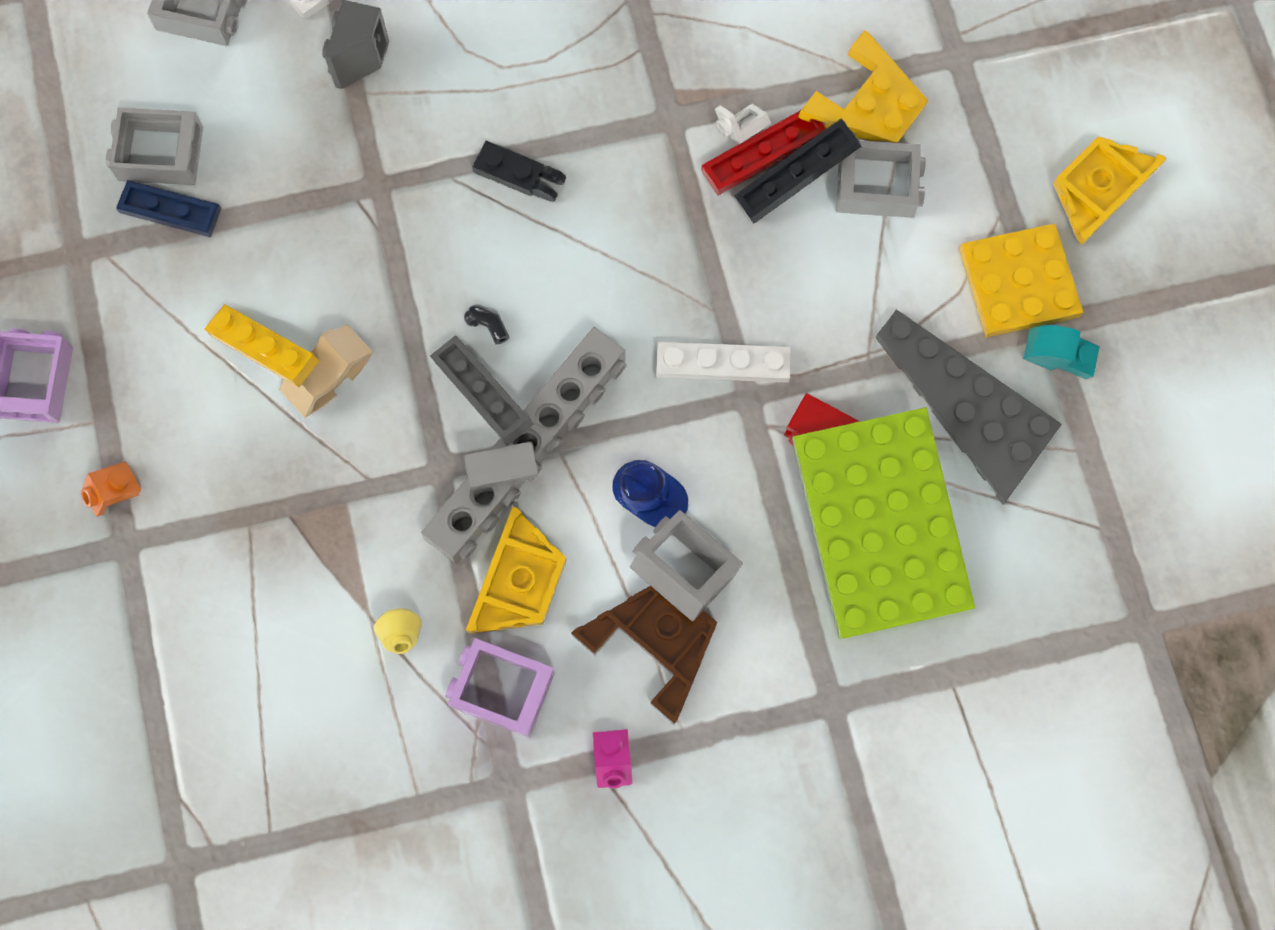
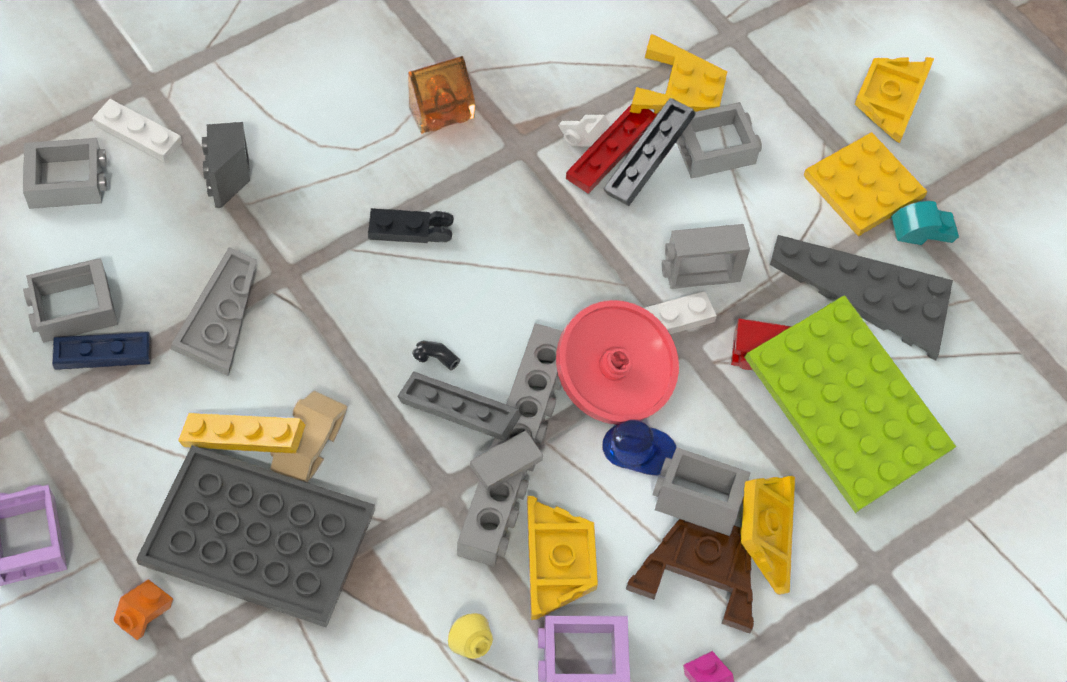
camera: 25 degrees left, 15 degrees down
(242, 453) = (257, 535): none -> dark grey plate
(289, 209) = (216, 318): none -> light grey wing
(604, 35) = (441, 95): none -> clear orange slope
(660, 397) = (617, 362): none -> coral dish
(738, 625) = (769, 528): none -> yellow wing
(802, 311) = (706, 256): none -> light grey window

